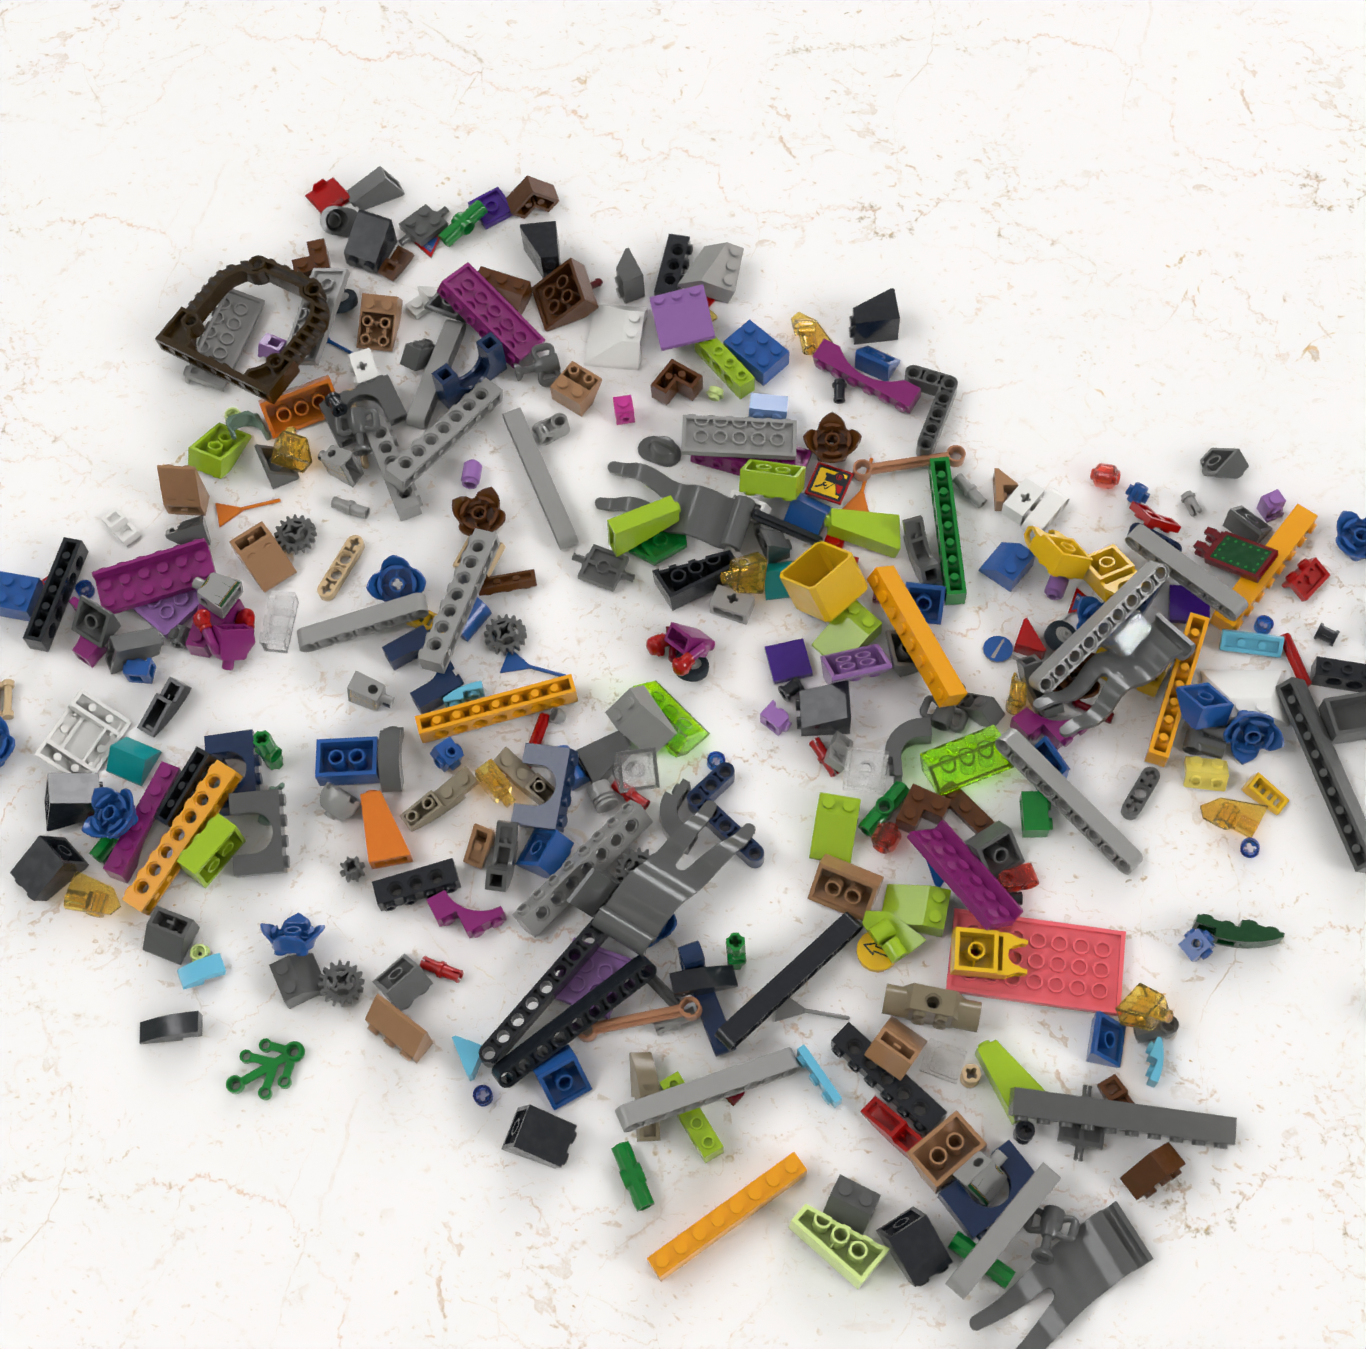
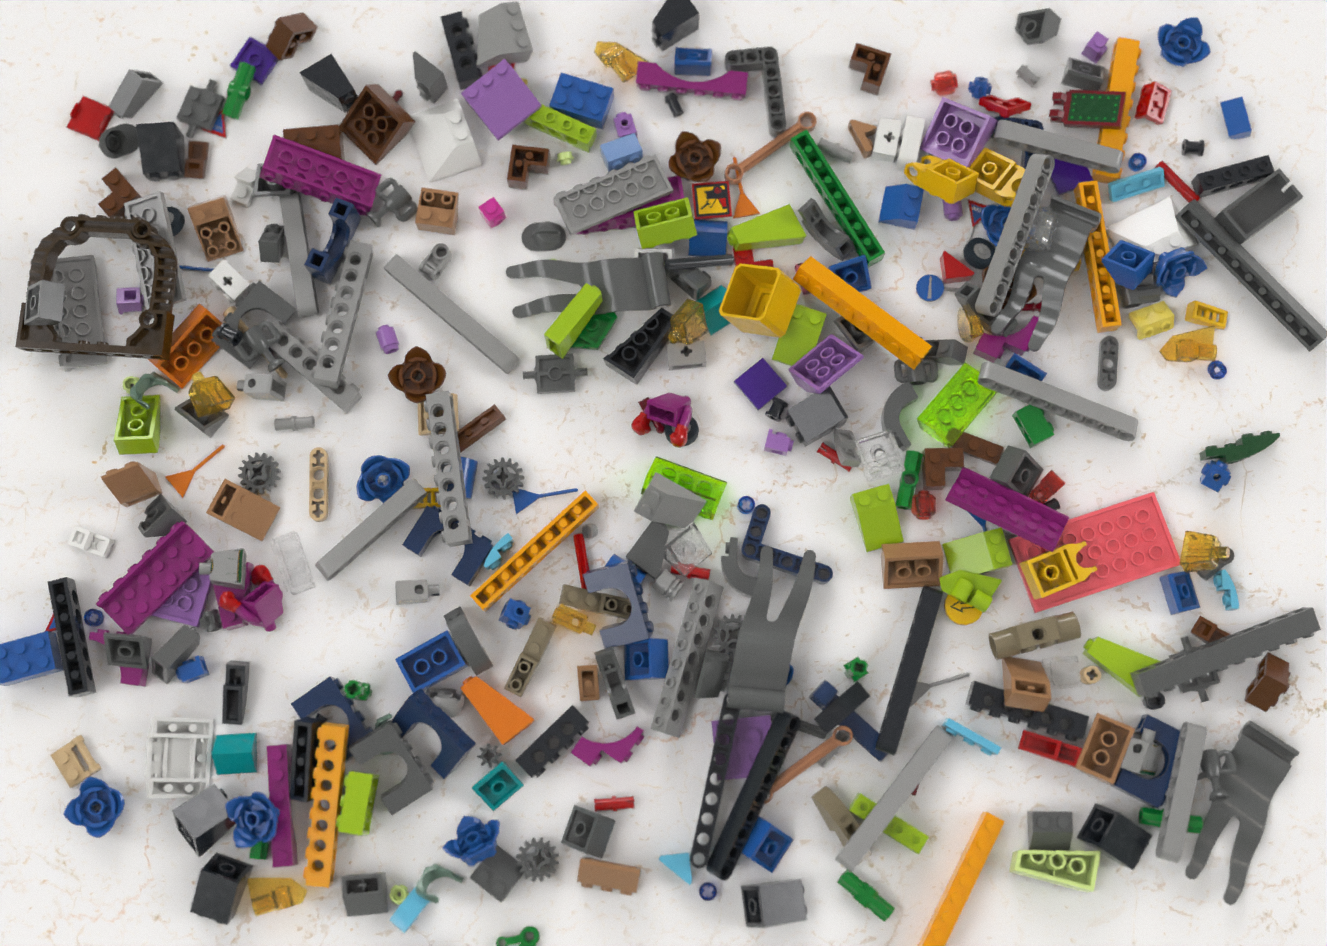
camera: 30 degrees left, 15 degrees up
(198, 312) = (44, 303): none -> slope
(236, 949) = (429, 875): none -> sand green helmet
(326, 834) = (454, 741): none -> dark blue arch
(343, 898) = (497, 786): none -> teal slope
(785, 387) = (621, 119): none -> medium lavender brick
(1042, 432) = (872, 63): none -> reddish brown brick
(1094, 520) = (957, 132): none -> medium lavender slope

